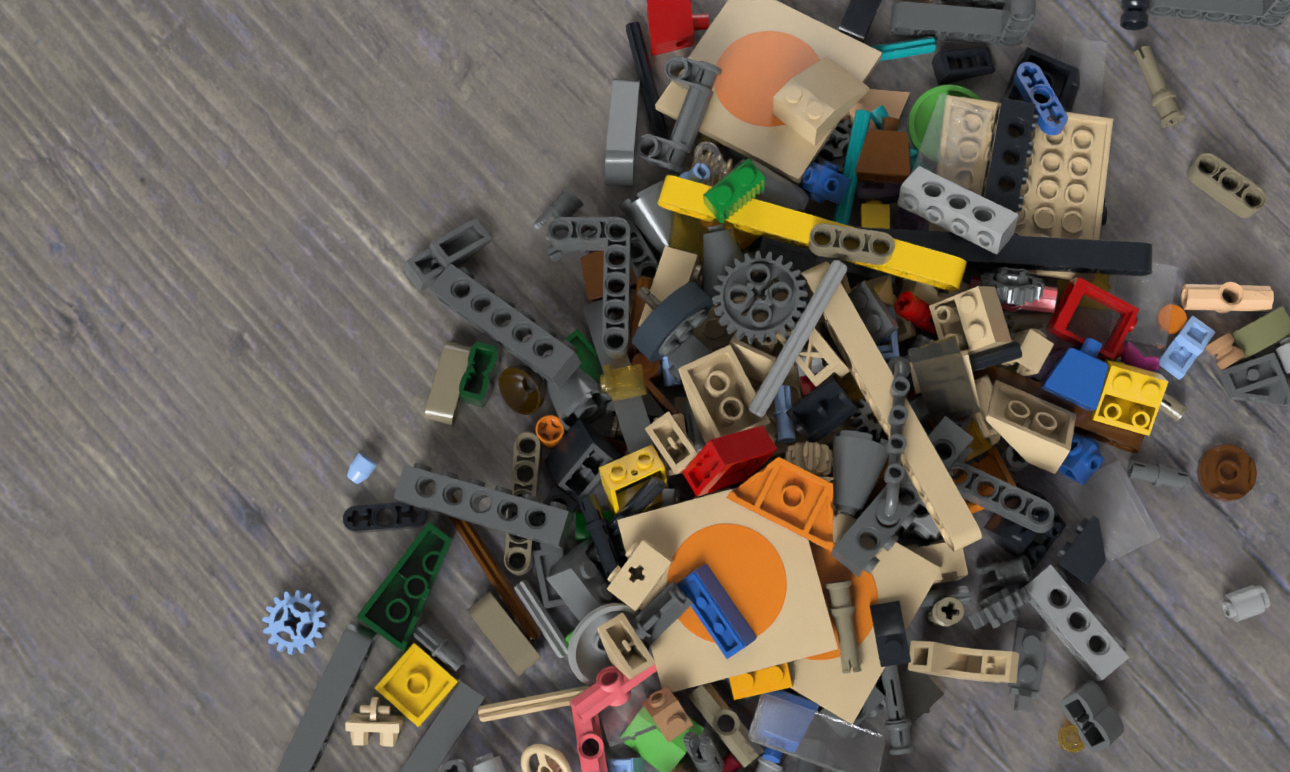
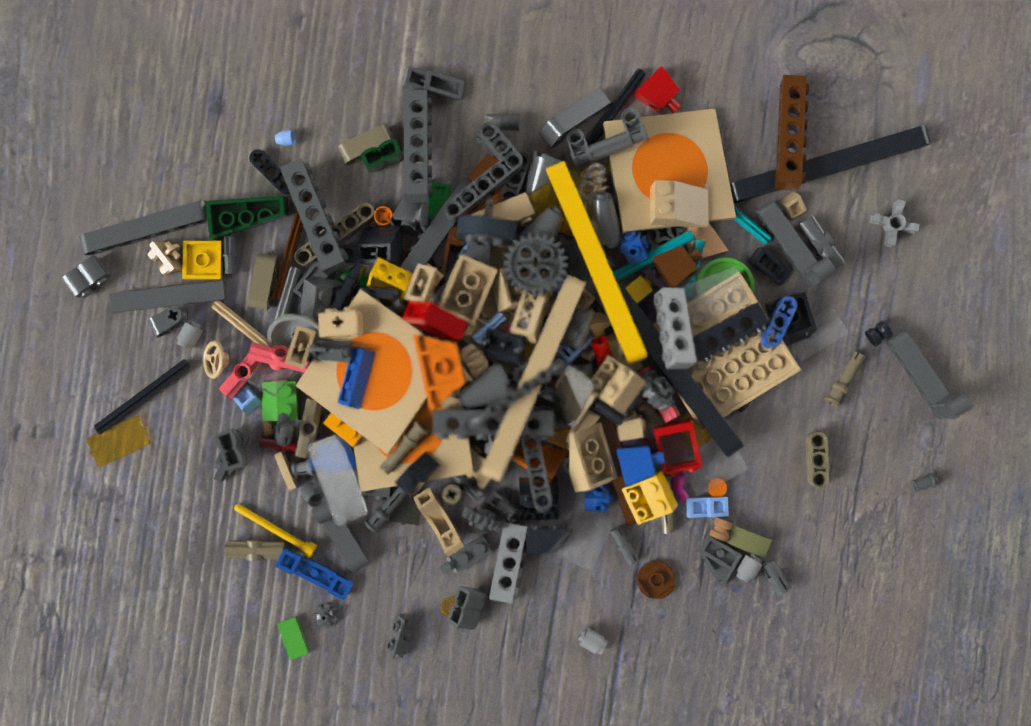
camera: 50 degrees right, 10 degrees up
(298, 635) = (176, 181): light blue gear -> none
(517, 392) = (392, 184): dark brown piece -> none
(623, 382) = (436, 232): clear yellow bracket -> none
(667, 713) = (286, 395): medium nougat bracket -> none
(697, 174) = (578, 176): light blue pin -> none
(734, 191) = (580, 203): green brick -> none
(798, 338) = (528, 302): light grey axle -> none
(865, 239) = (600, 278): dark tan beam -> none
(1242, 296) = (760, 516): light nougat piece -> none

